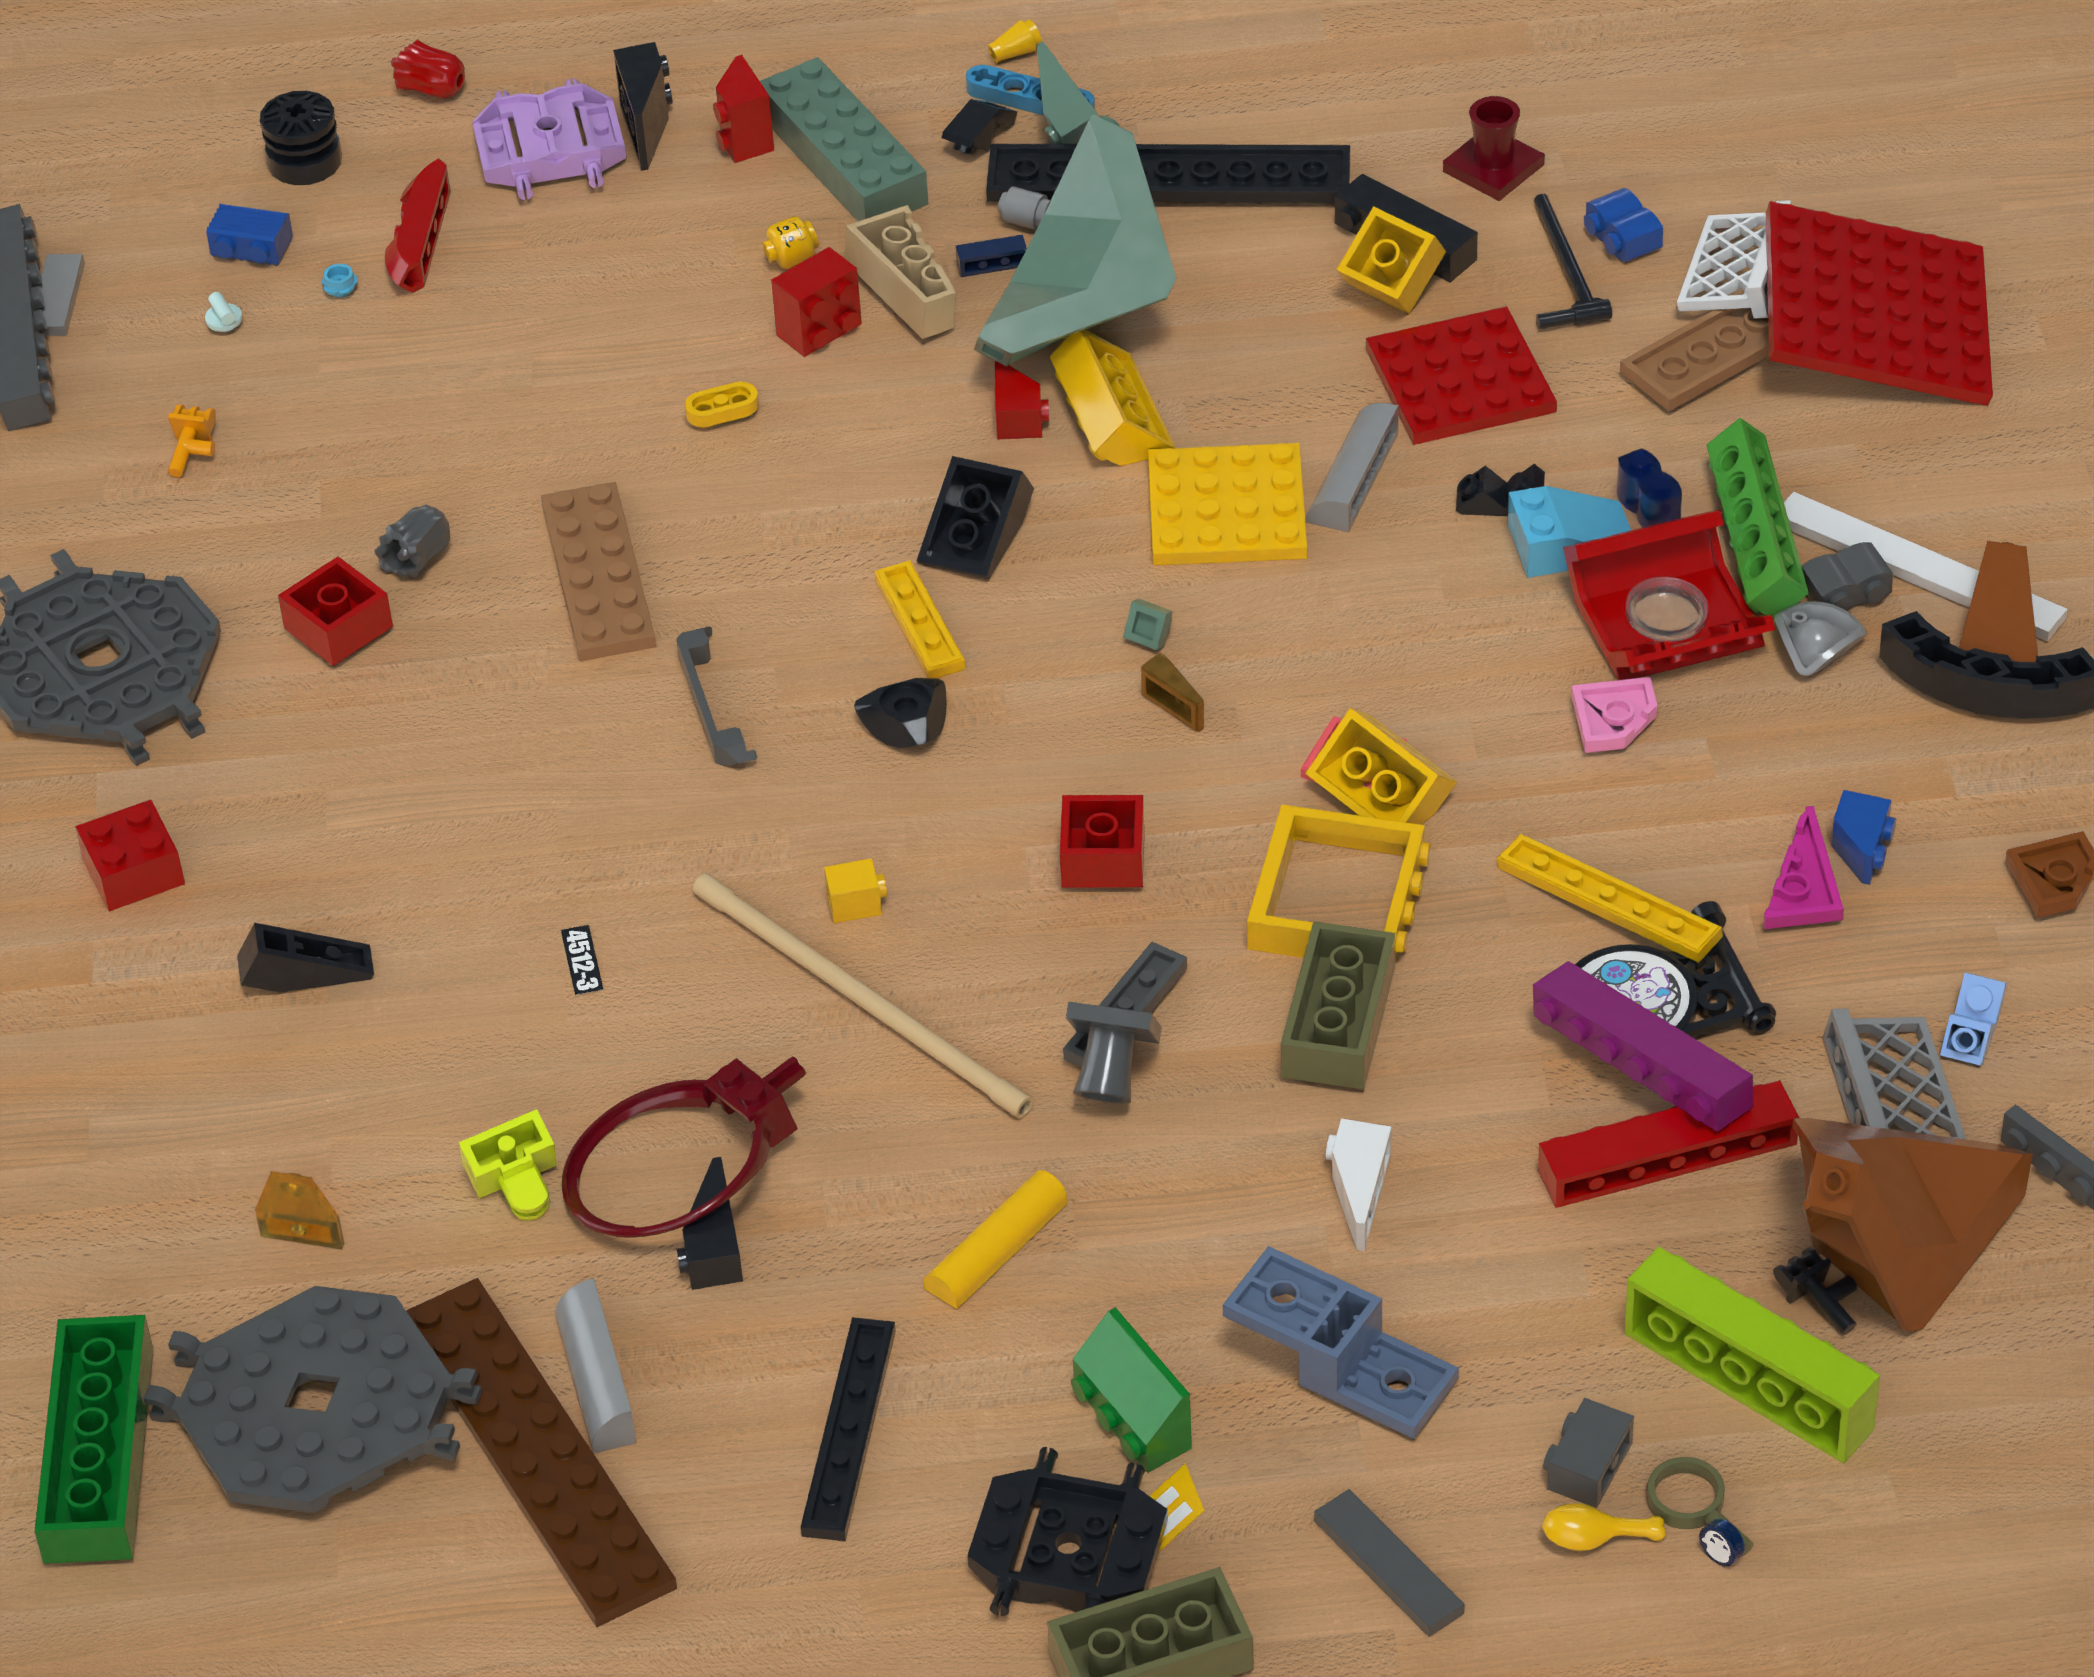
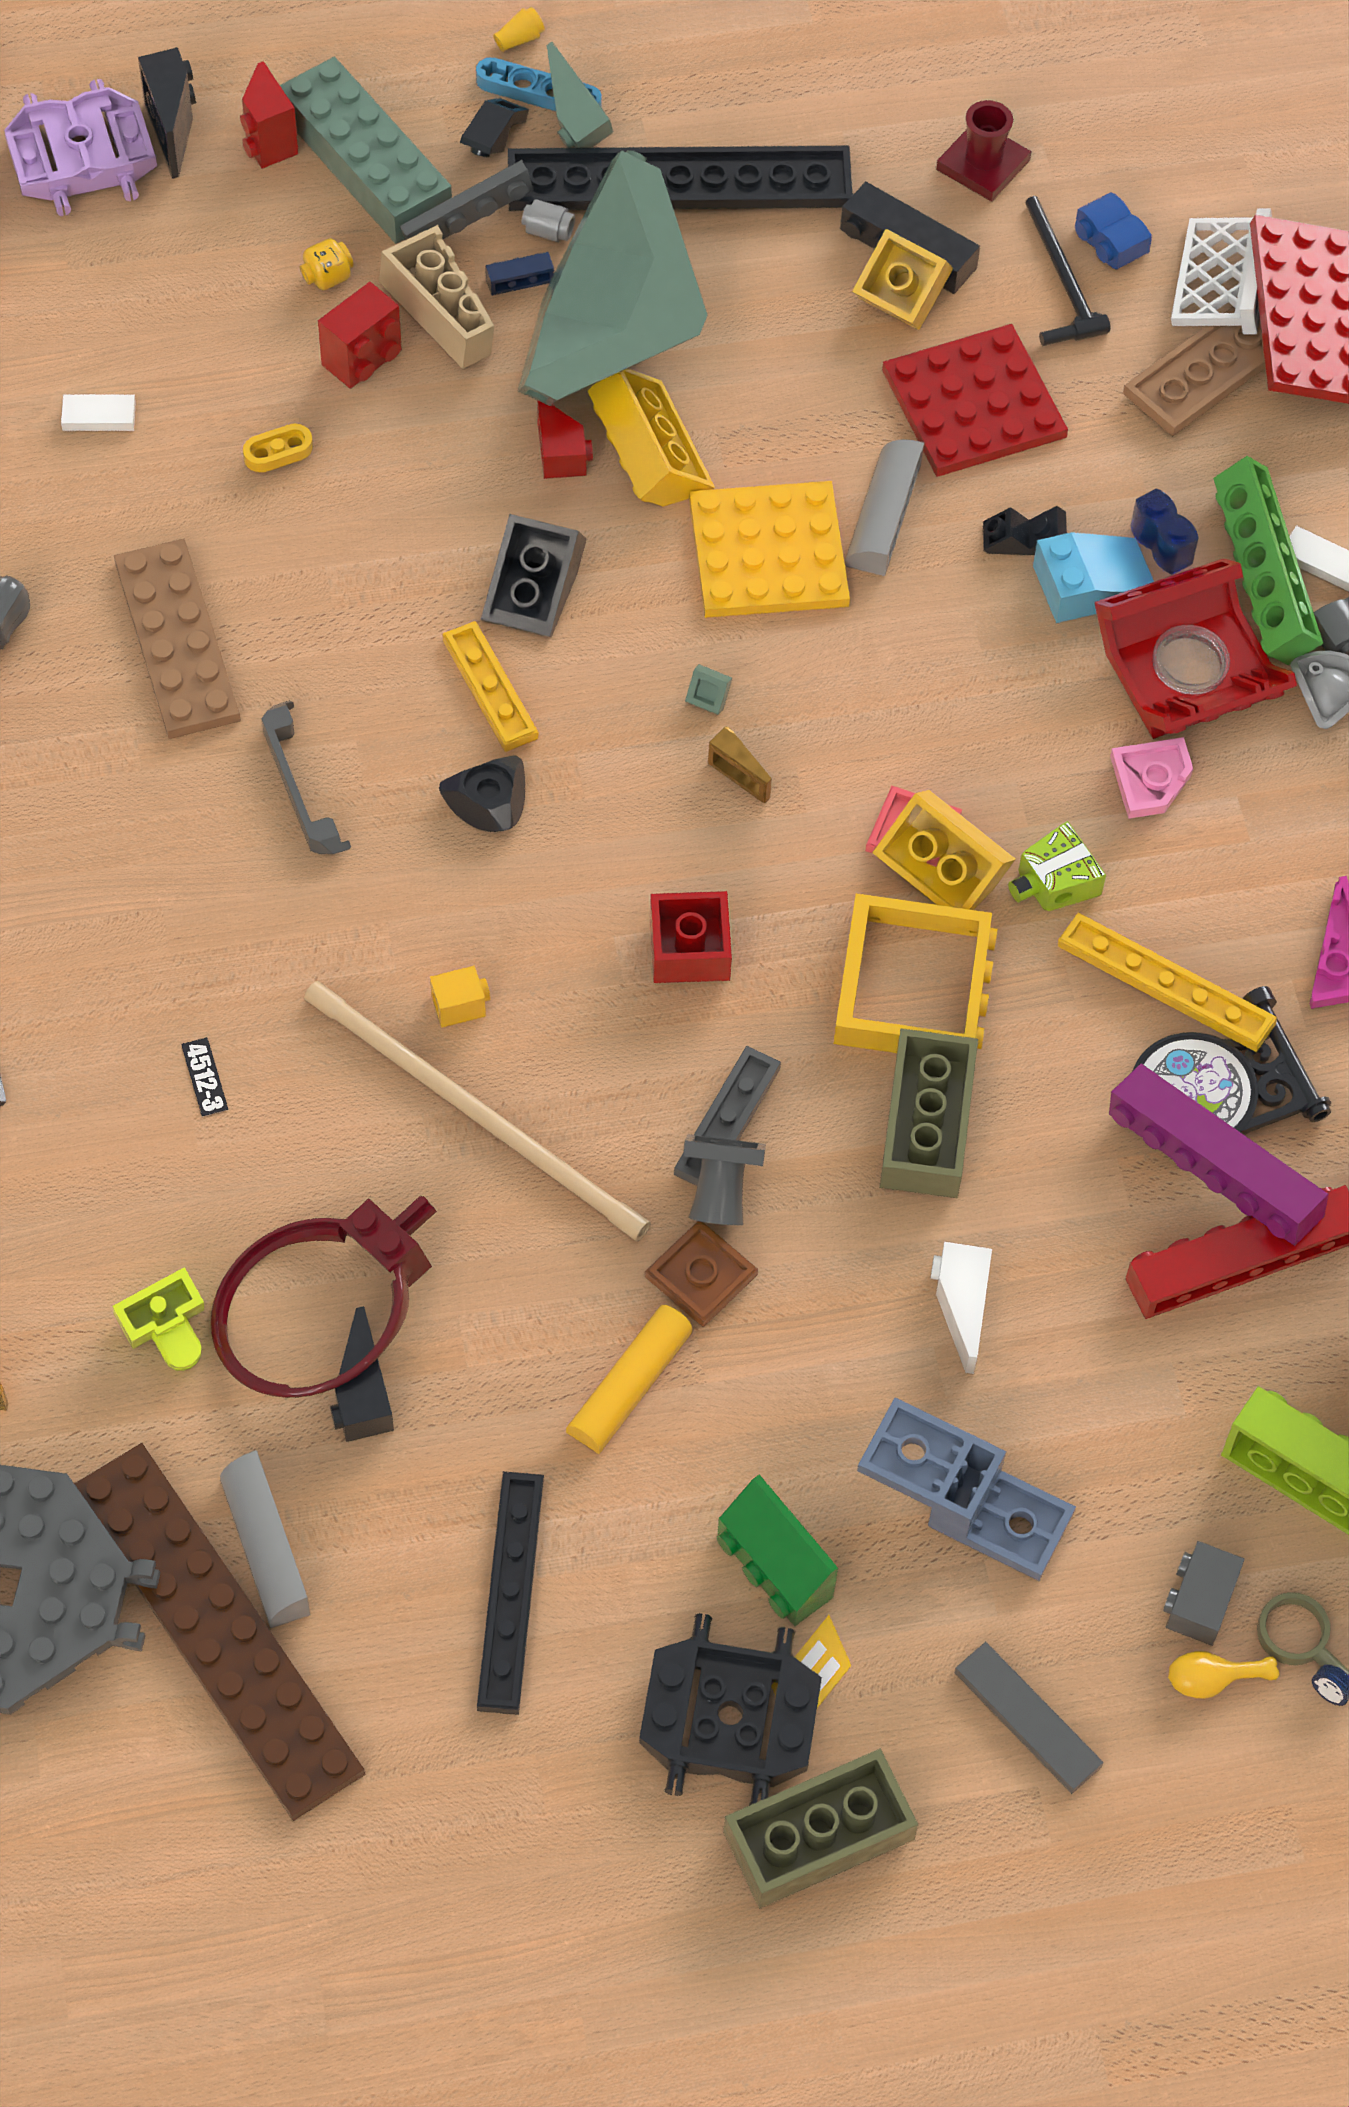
camera: 10 degrees left, 15 degrees up
(540, 371) = (98, 413): none -> white tile
(951, 186) = (473, 203): none -> dark grey plate
(1082, 1146) = (701, 1273): none -> dark orange plate
(1502, 795) = (1058, 871): none -> lime torso

